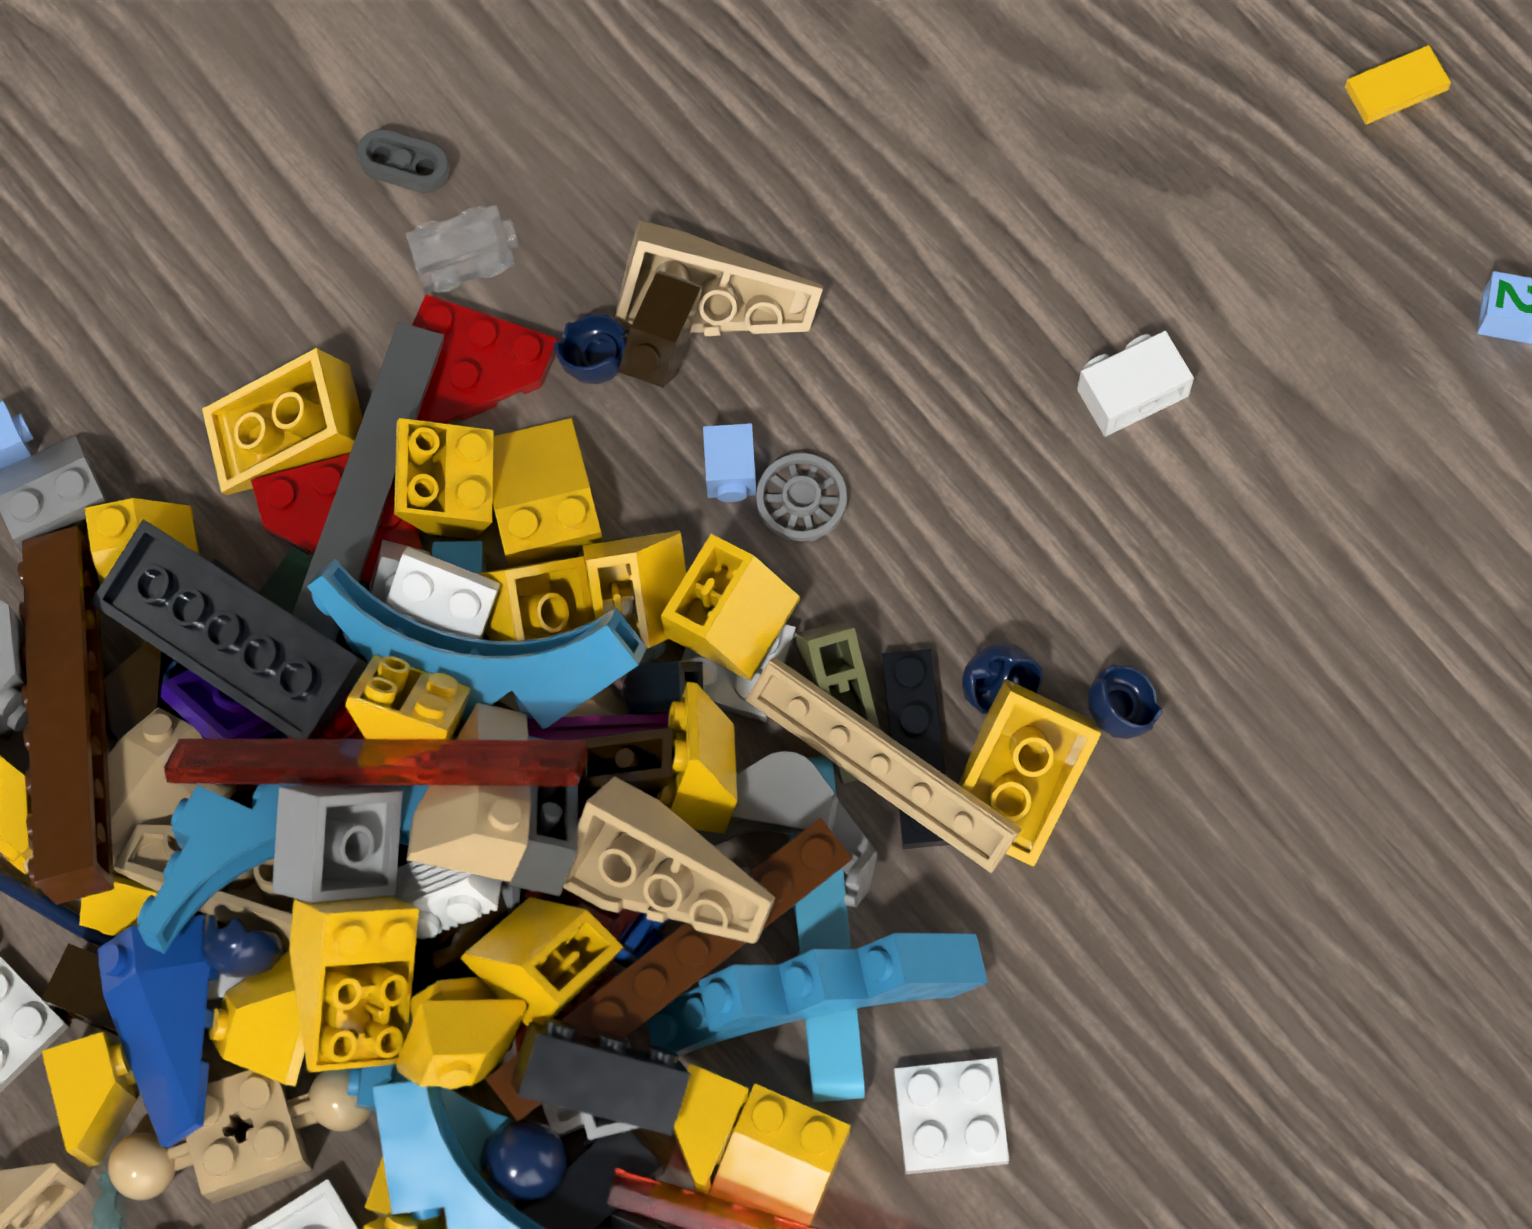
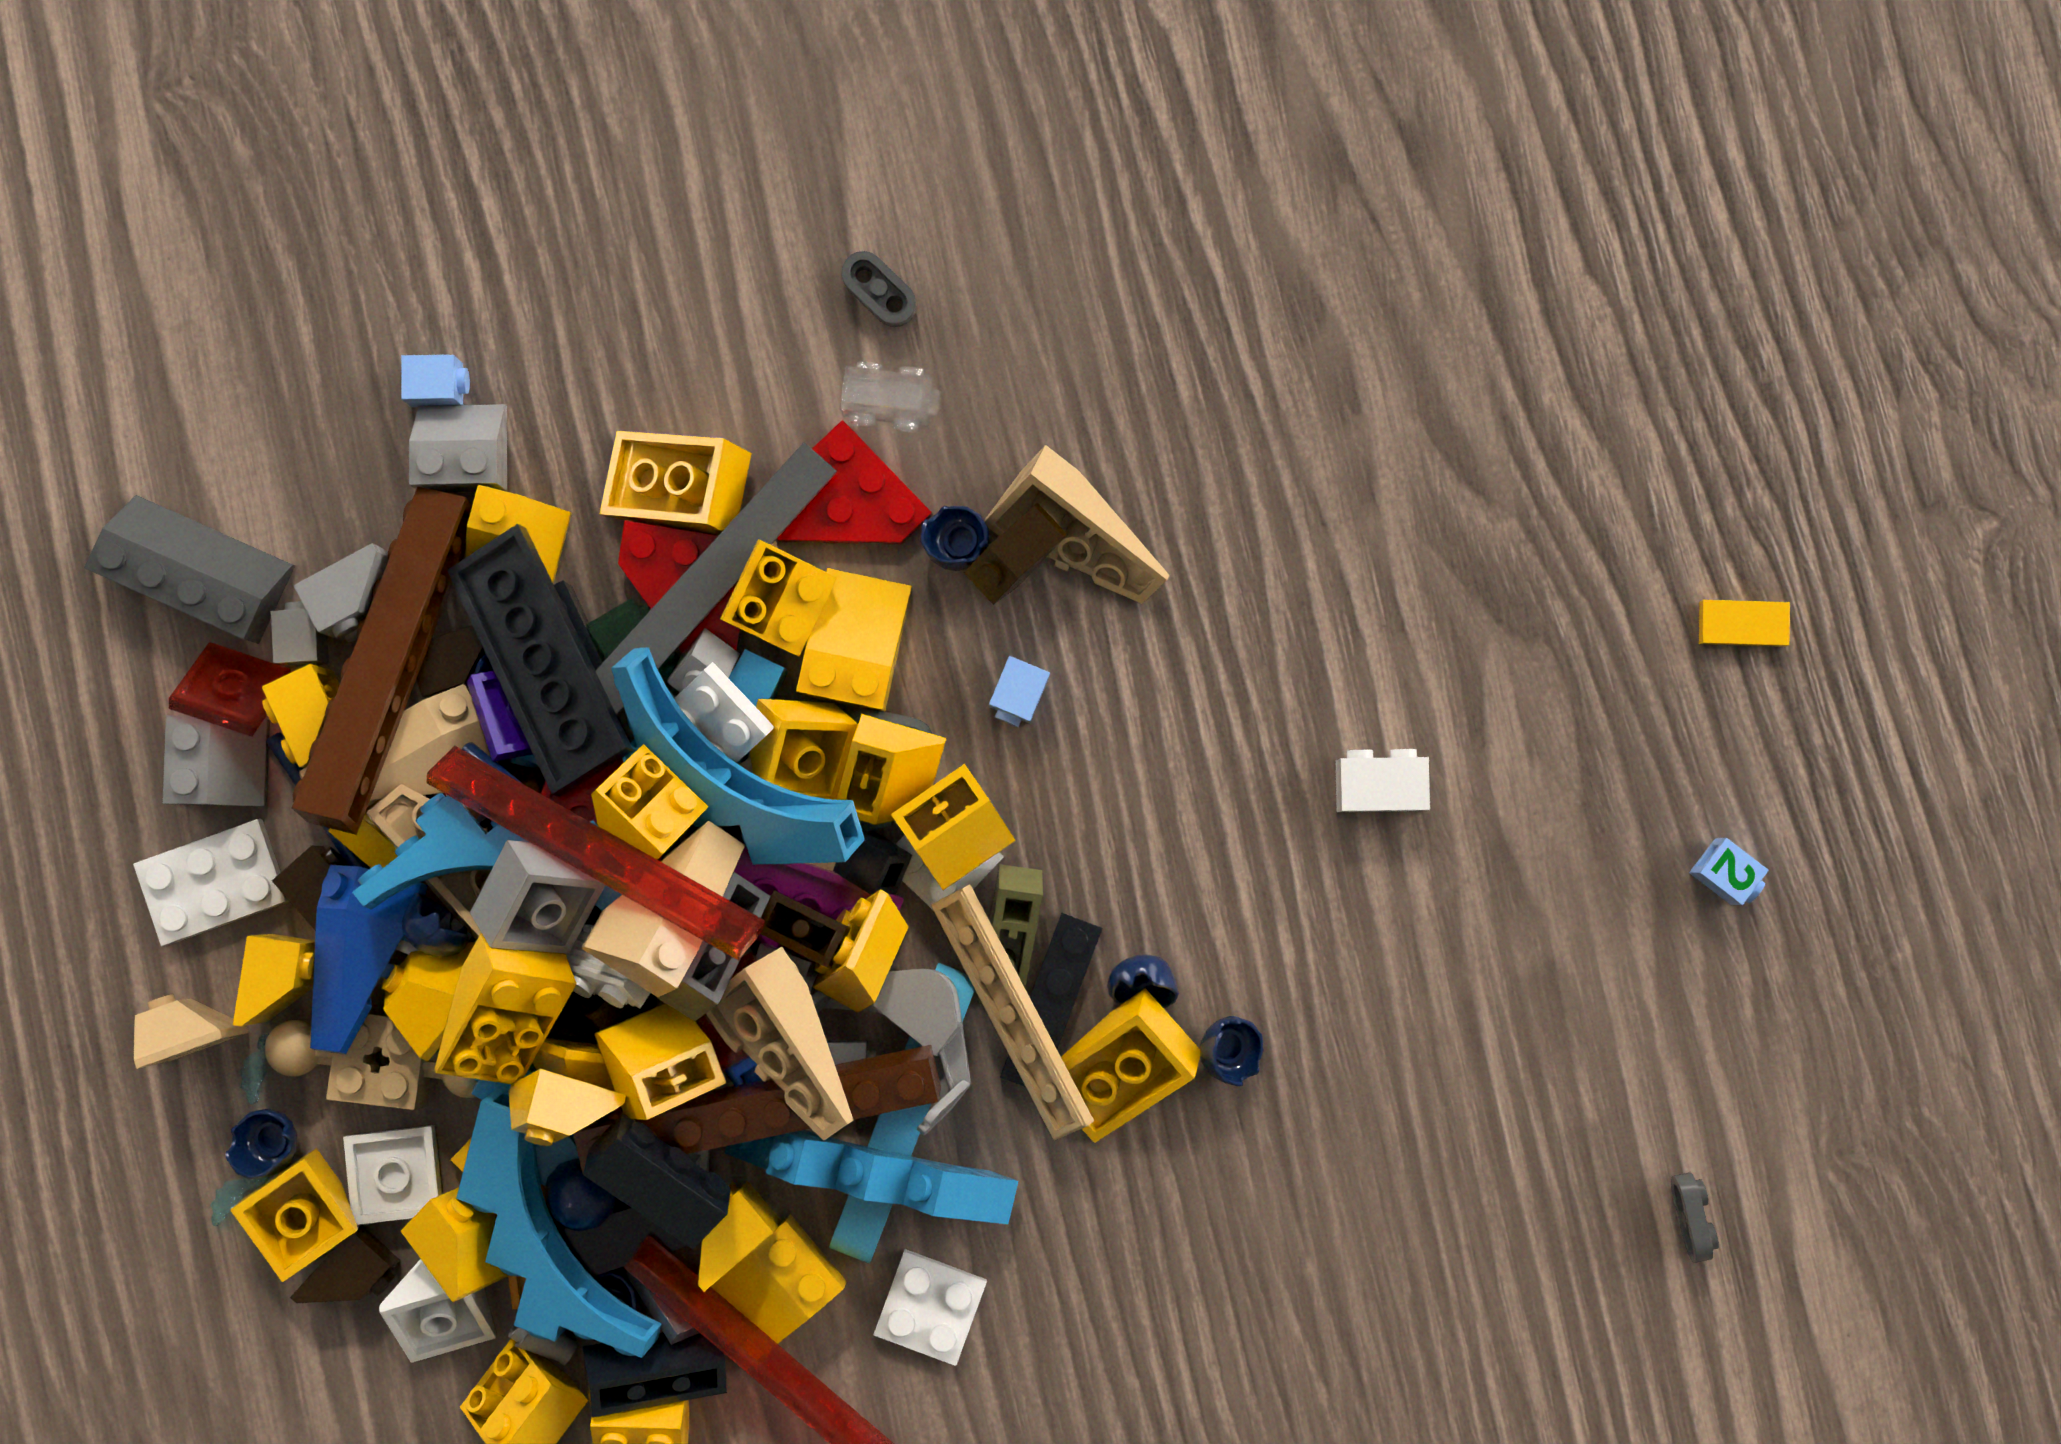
camera: 20 degrees right, 15 degrees up
(801, 497) = (1064, 745): light grey wheel -> none

